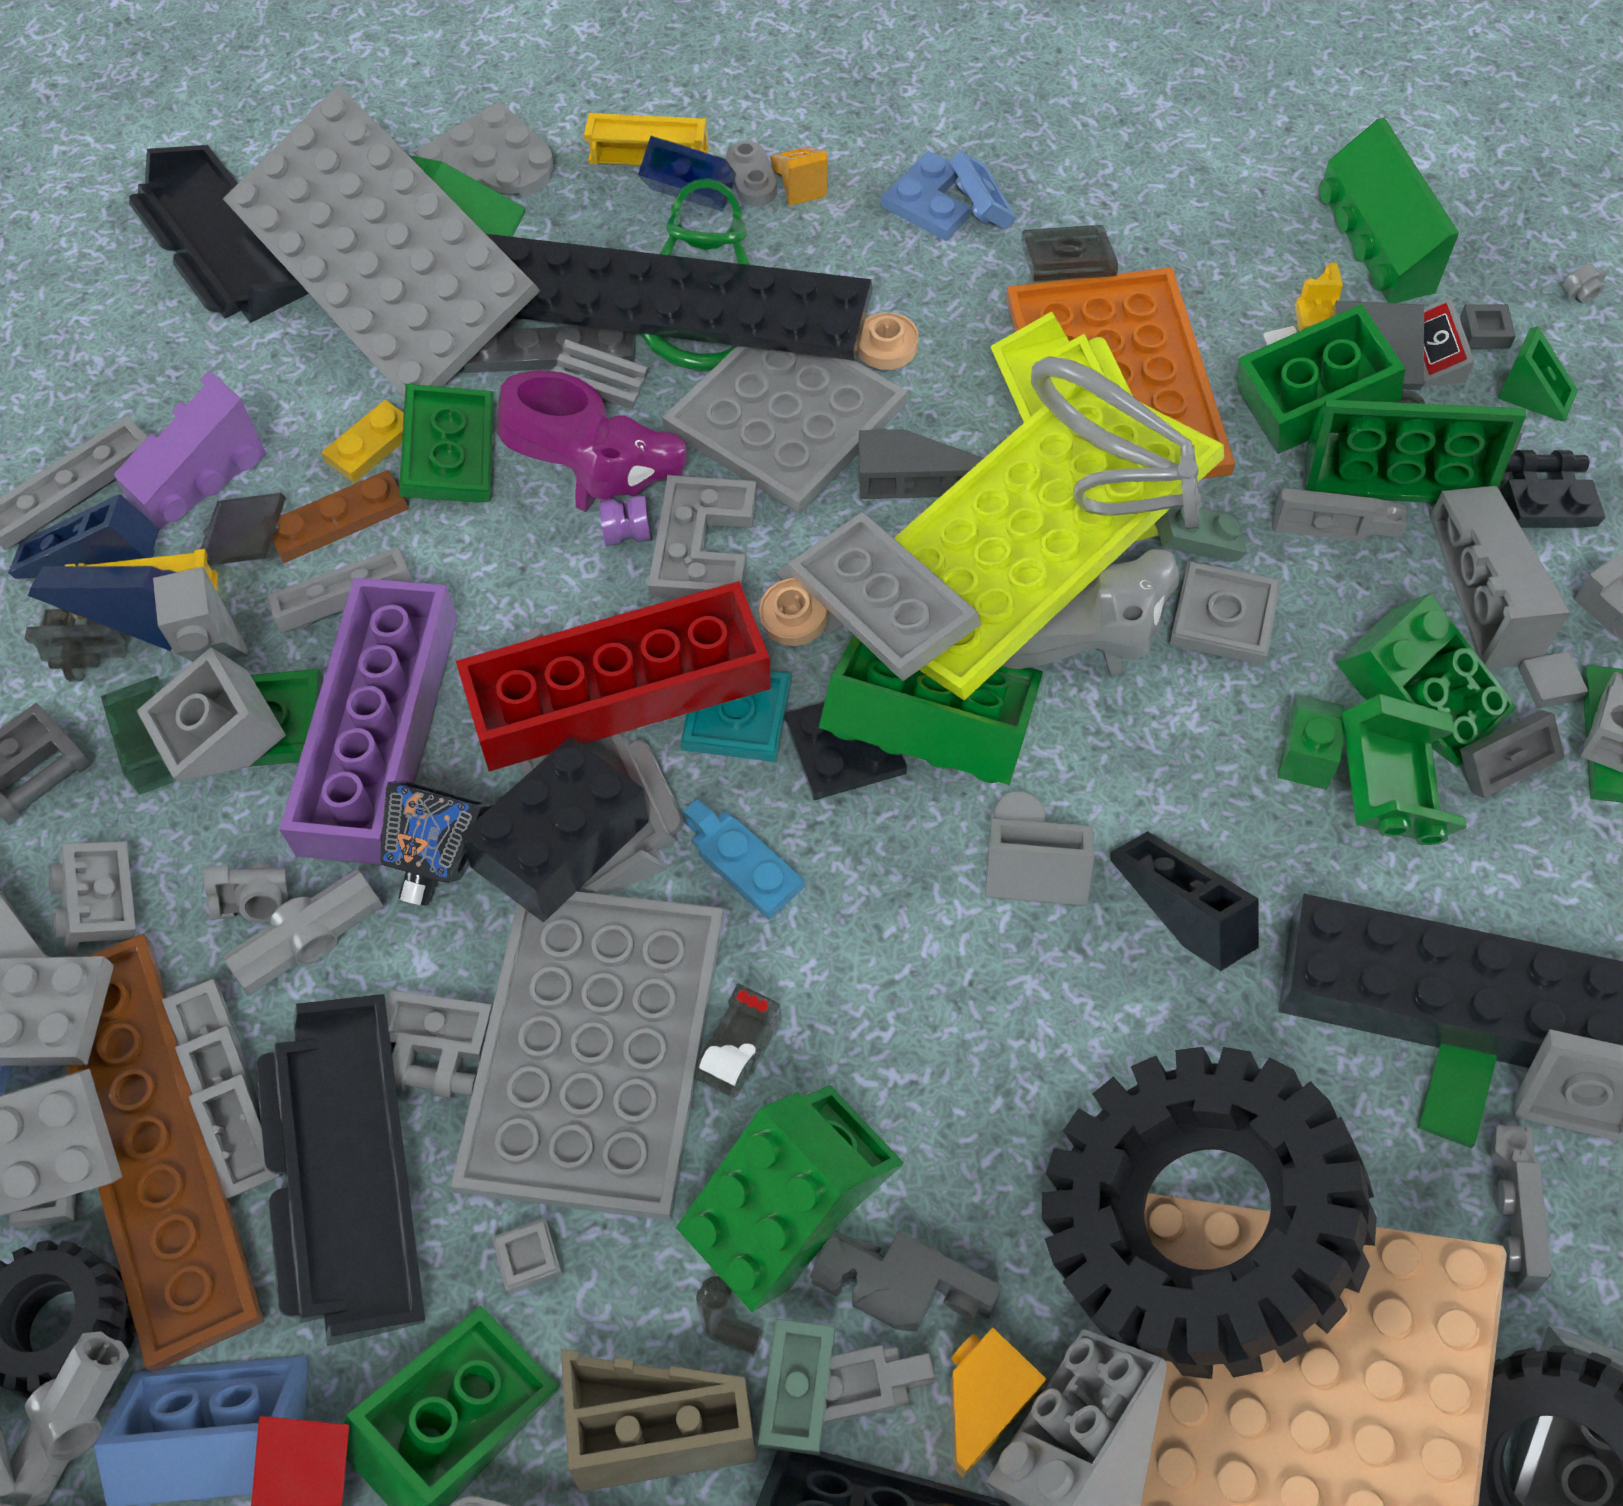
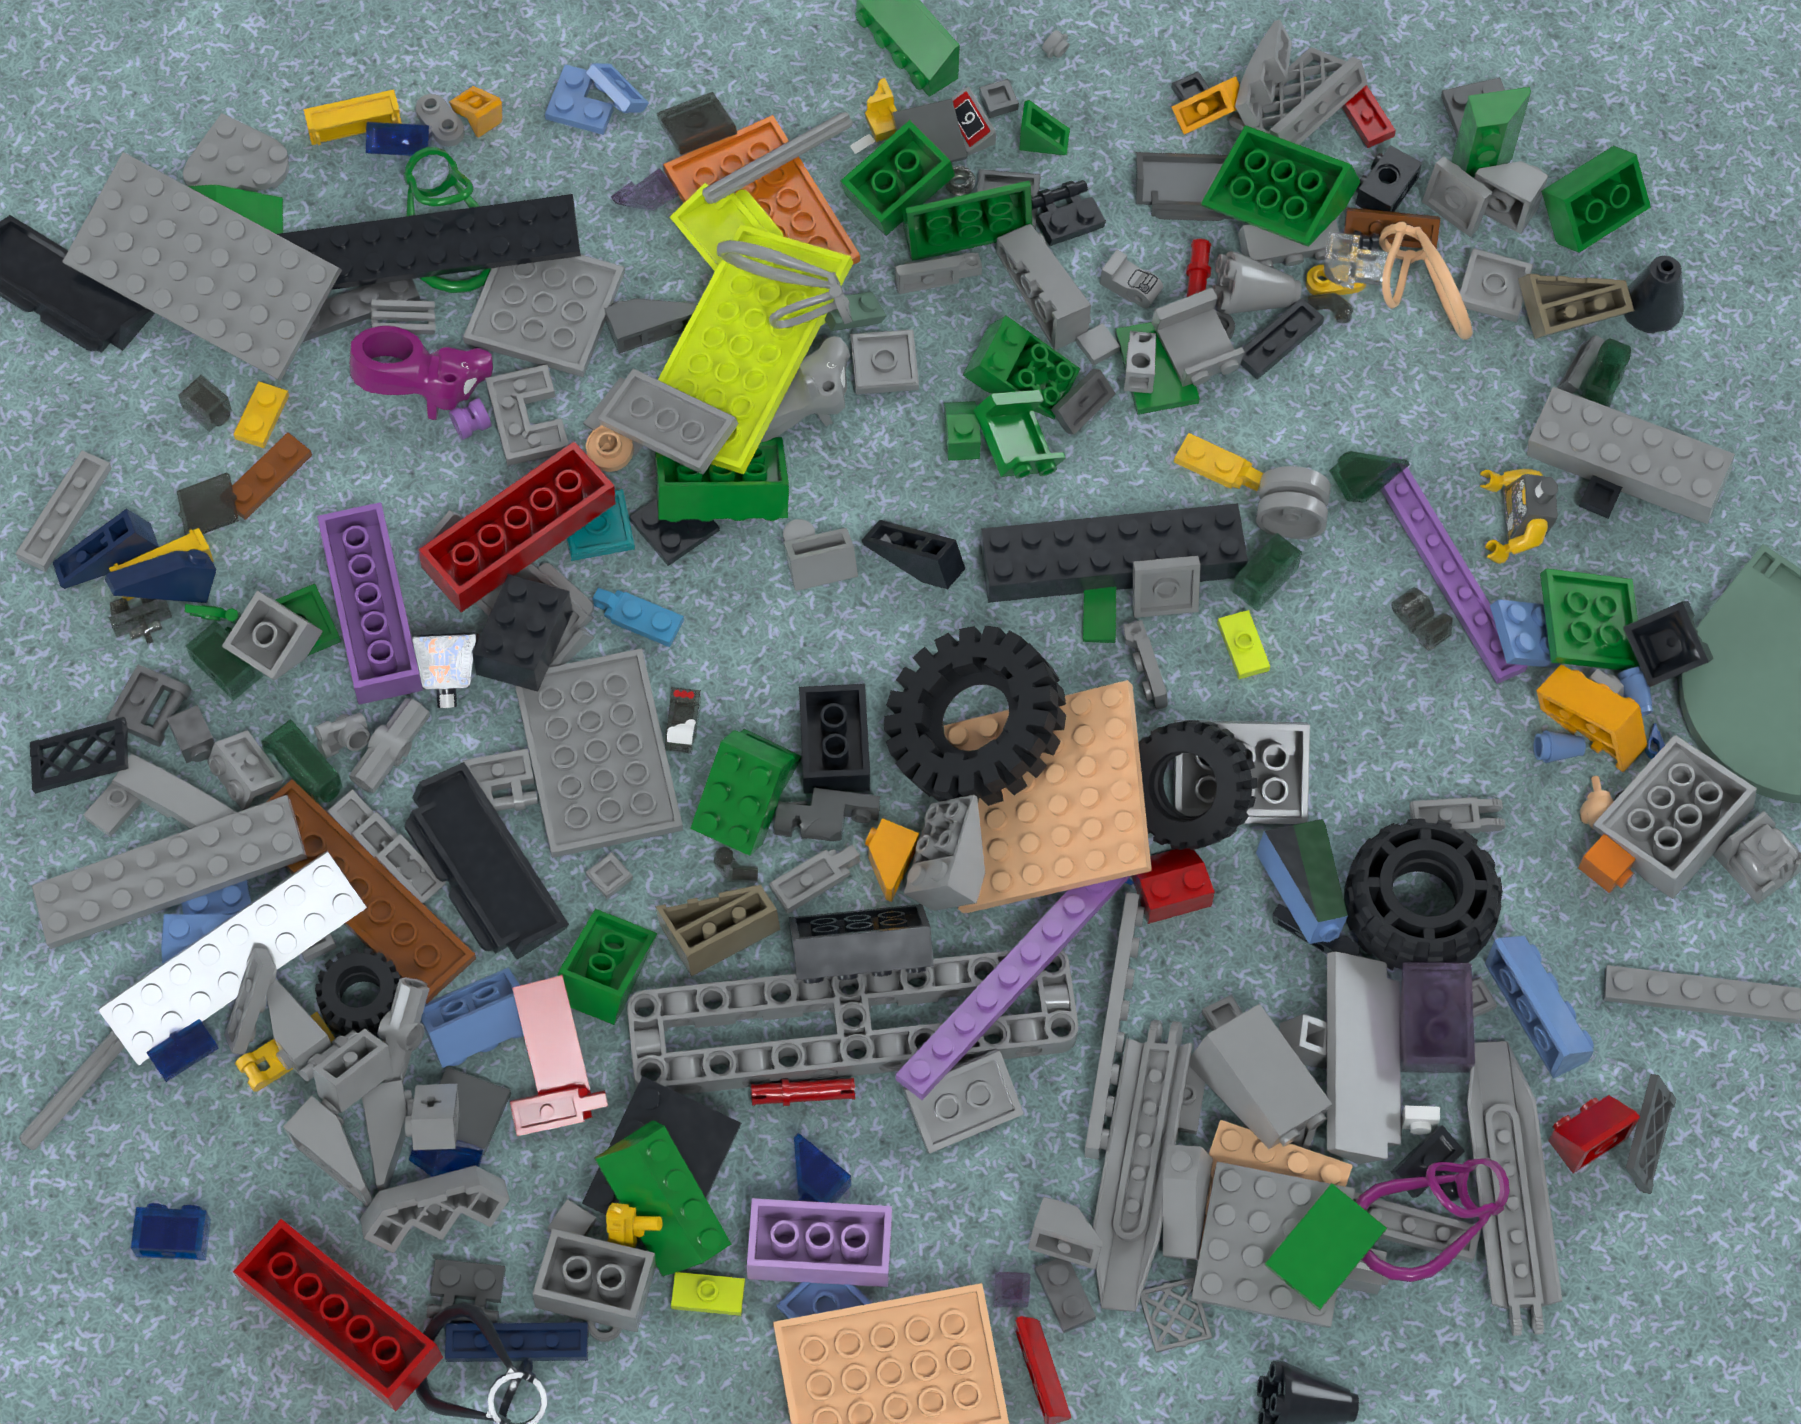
camera: 25 degrees left, 5 degrees up
(47, 819) = (192, 734): none -> flat silver brick
(156, 661) = (213, 613): none -> green piece
(172, 917) = (303, 762): none -> clear green window
(192, 456) = (151, 464): medium lavender wedge -> none
(195, 616) = (235, 573): light grey slope -> none
(305, 405) = (205, 403): none -> clear smoke brick
(328, 593) = (297, 526): light grey plate -> none
(446, 444) = (319, 400): green tile -> none
(797, 1387) = (789, 881): sand green plate -> none
(888, 341) = (596, 231): light nougat plate -> none
(960, 1156) = (834, 738): none -> black brick
(975, 320) = (647, 194): none -> slope
(1159, 312) = (777, 158): none -> light grey axle

